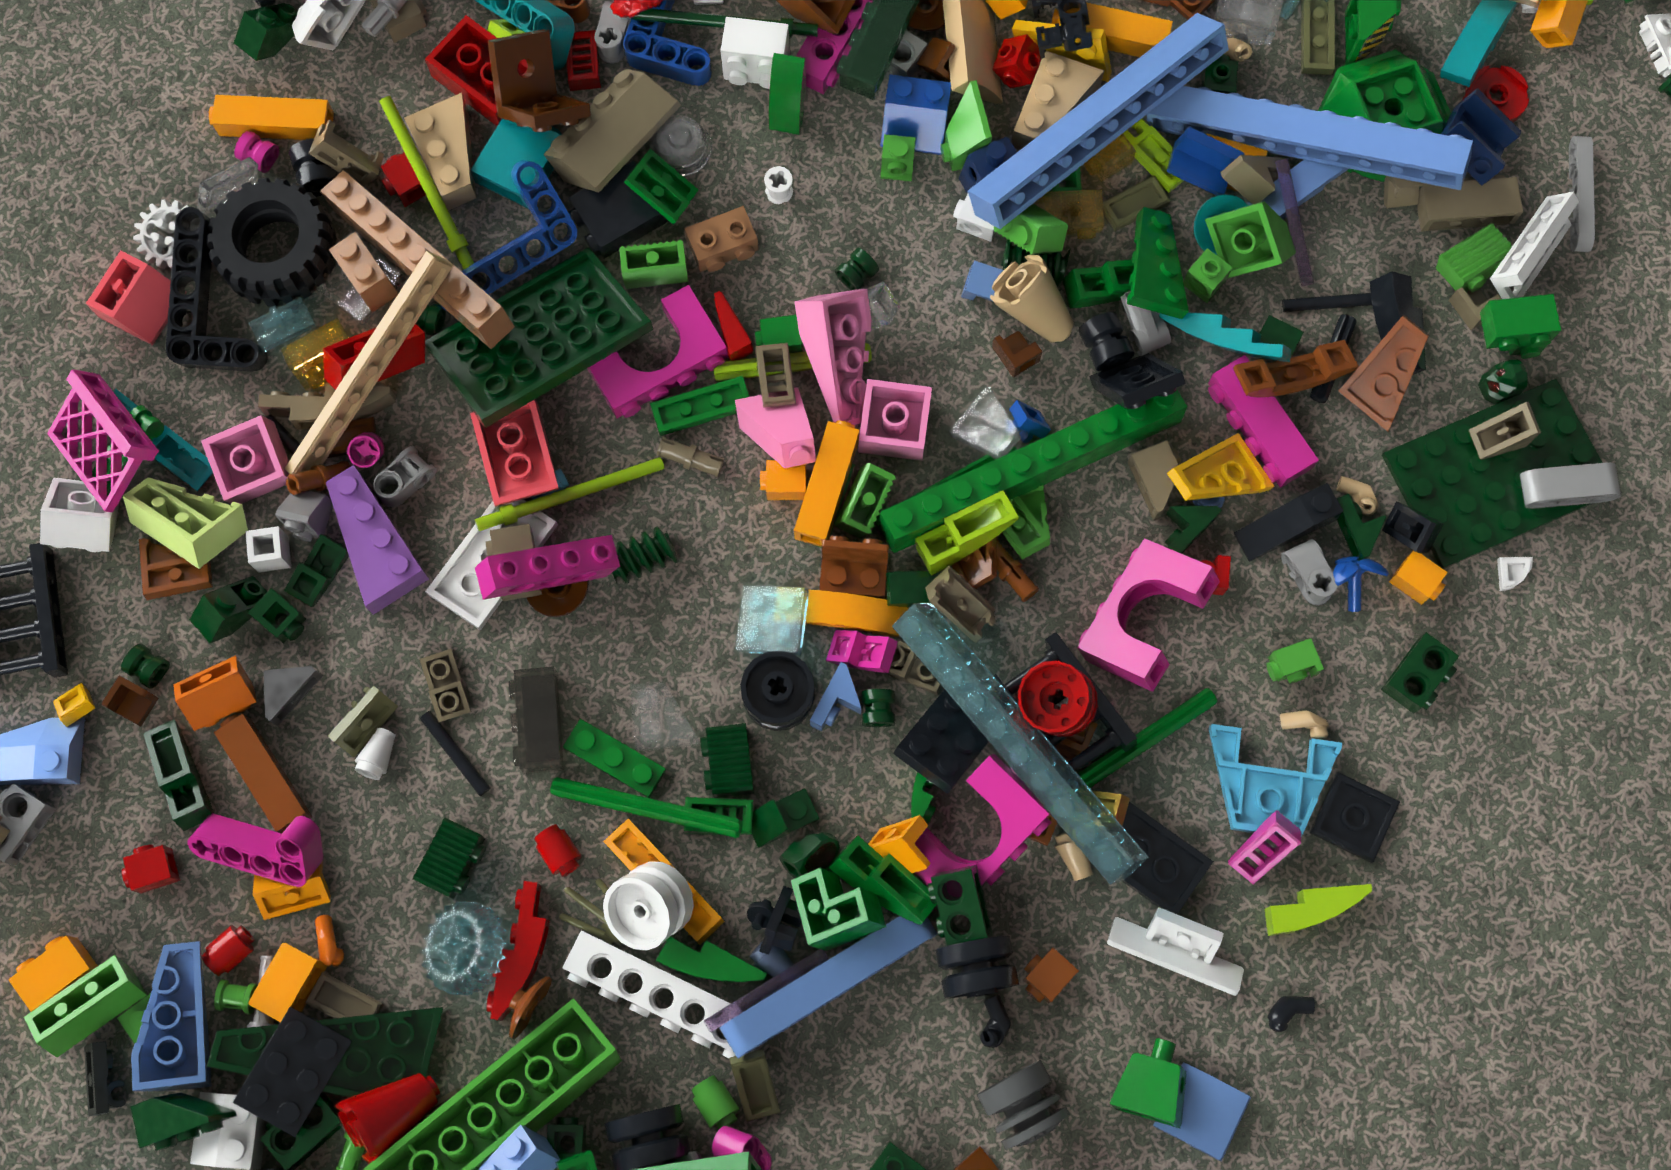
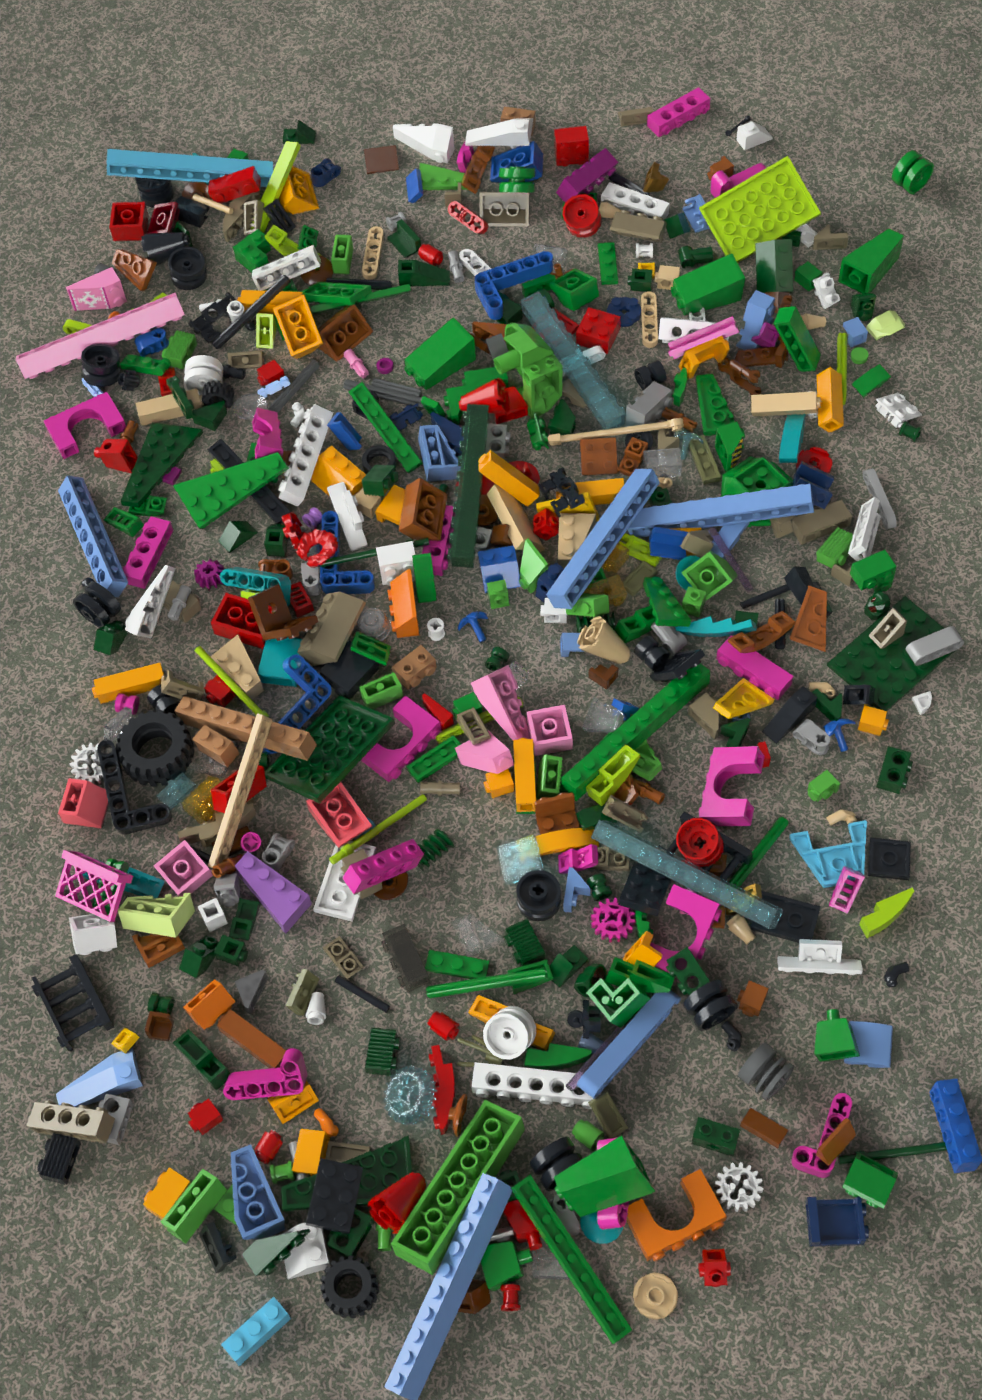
camera: 15 degrees left, 15 degrees down
(741, 129) = (403, 606): none -> orange slope
(842, 187) = (472, 619): none -> blue plant
(863, 775) = (612, 928): none -> dark pink gear

